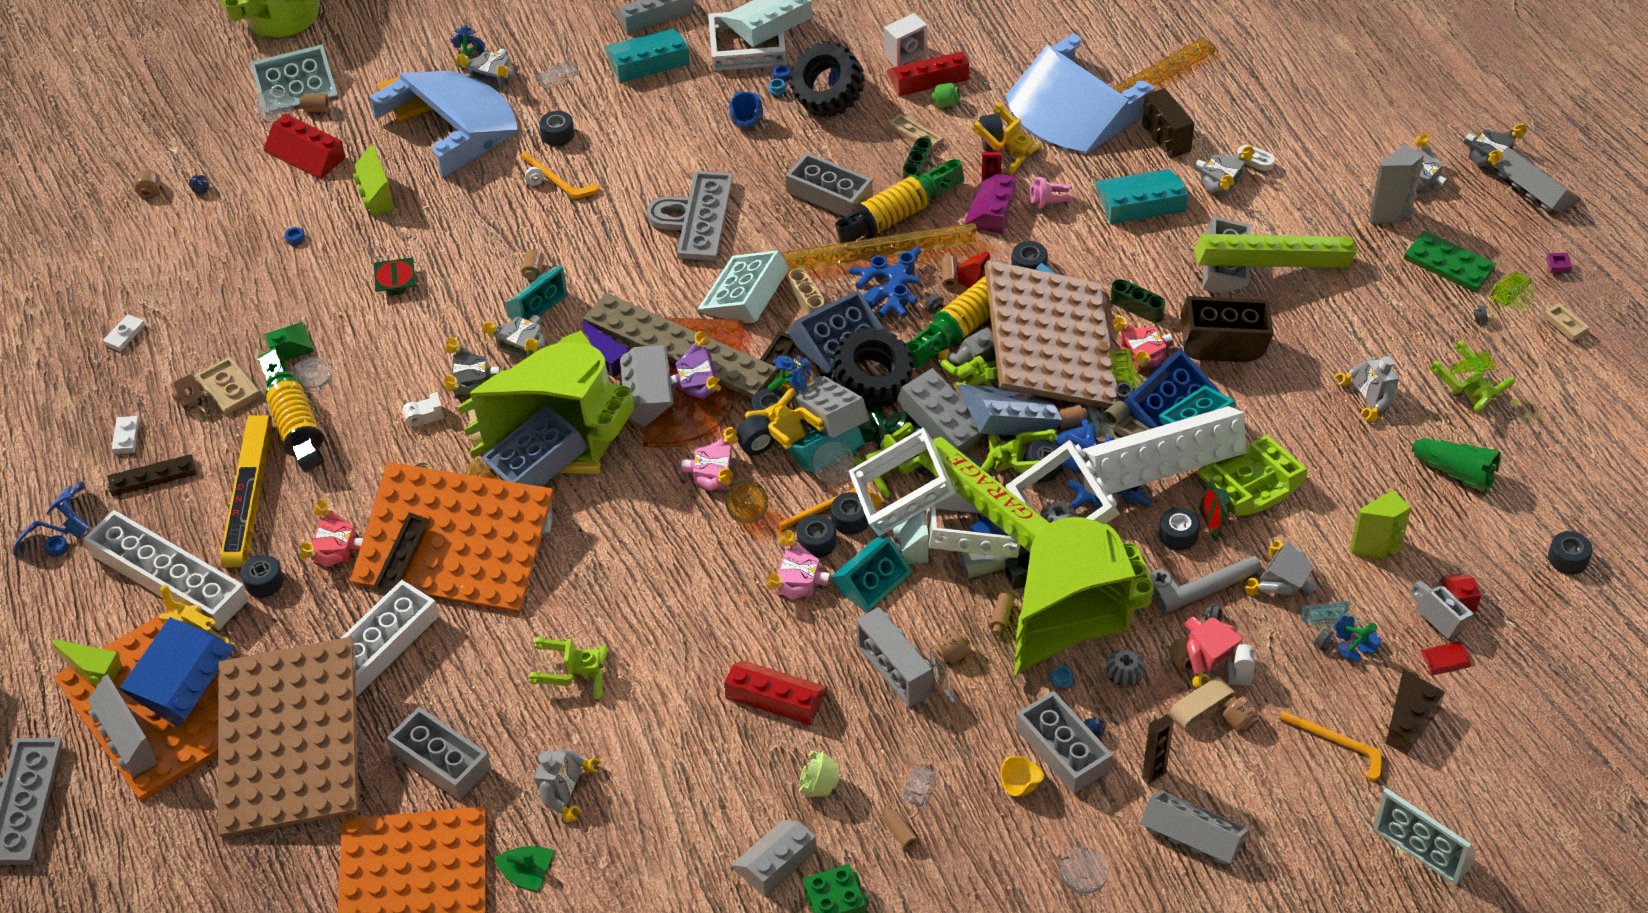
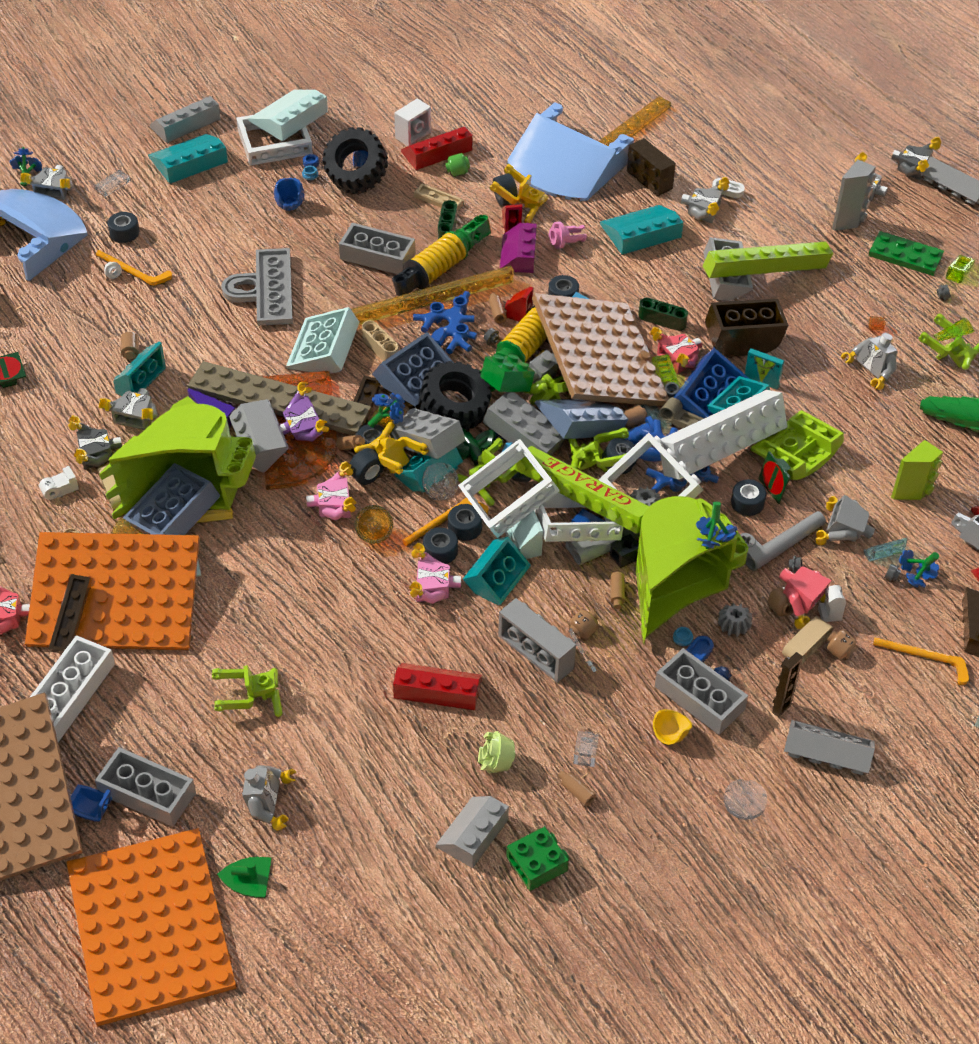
camera: 15 degrees left, 0 degrees up
(378, 761) = (90, 802): none -> blue piece
(743, 405) = (349, 442): none -> medium nougat cylinder
(933, 350) = (507, 373): none -> green brick
(1078, 694) = (701, 647): none -> blue tile
(1107, 557) = (708, 527): none -> blue plant
(1236, 380) = (764, 368): none -> teal tile
(1389, 342) = (876, 323): none -> clear orange hose

